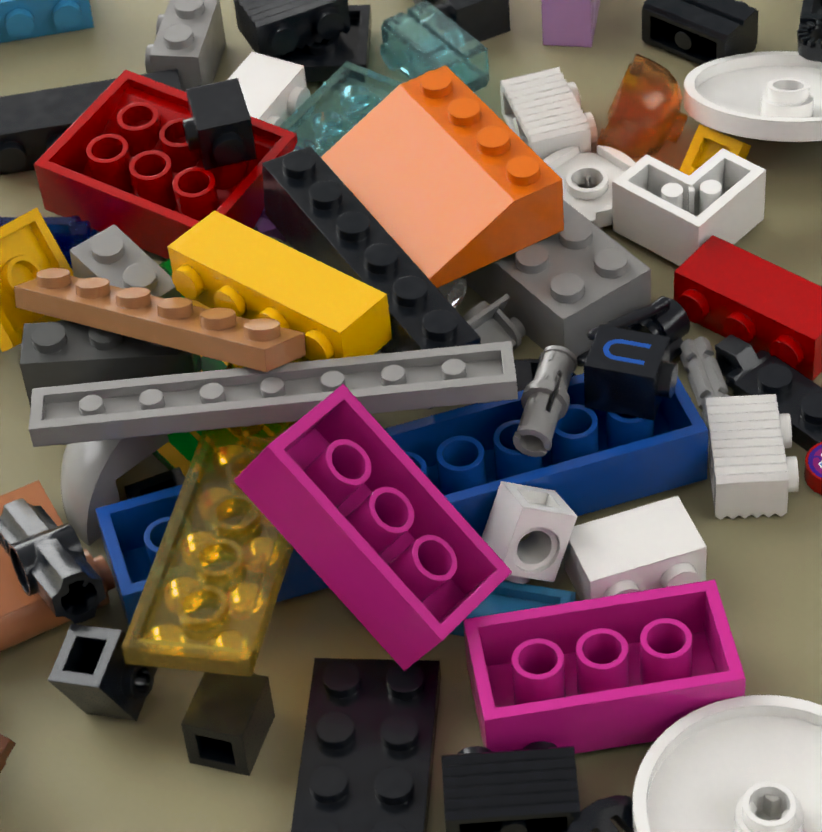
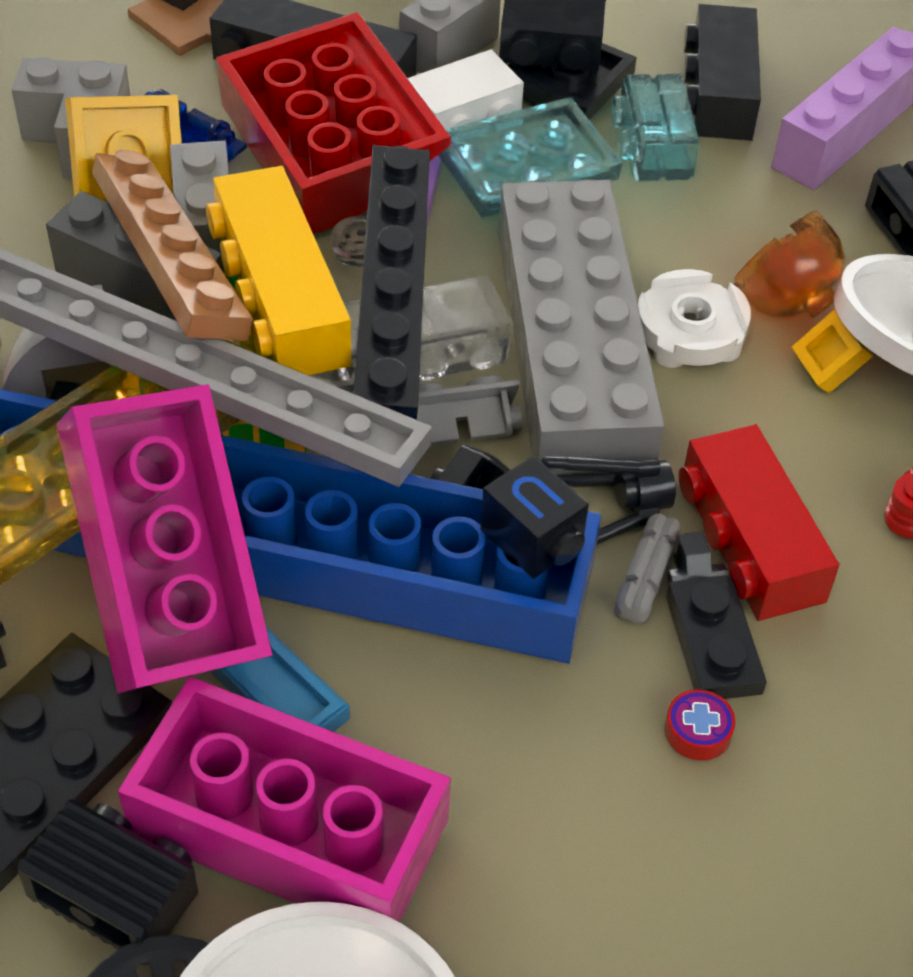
camera: 25 degrees right, 5 degrees up
(219, 124) = (380, 94): black brick -> none
(448, 177) = (526, 244): orange slope -> none
(524, 510) = (336, 622): white brick -> none
(545, 401) = (410, 524): light grey pin -> none
(547, 112) = (707, 229): white brick -> none
(636, 551) = (426, 705): white brick -> none
(681, 212) = (744, 384): white brick -> none
(749, 456) = (617, 663): white brick -> none

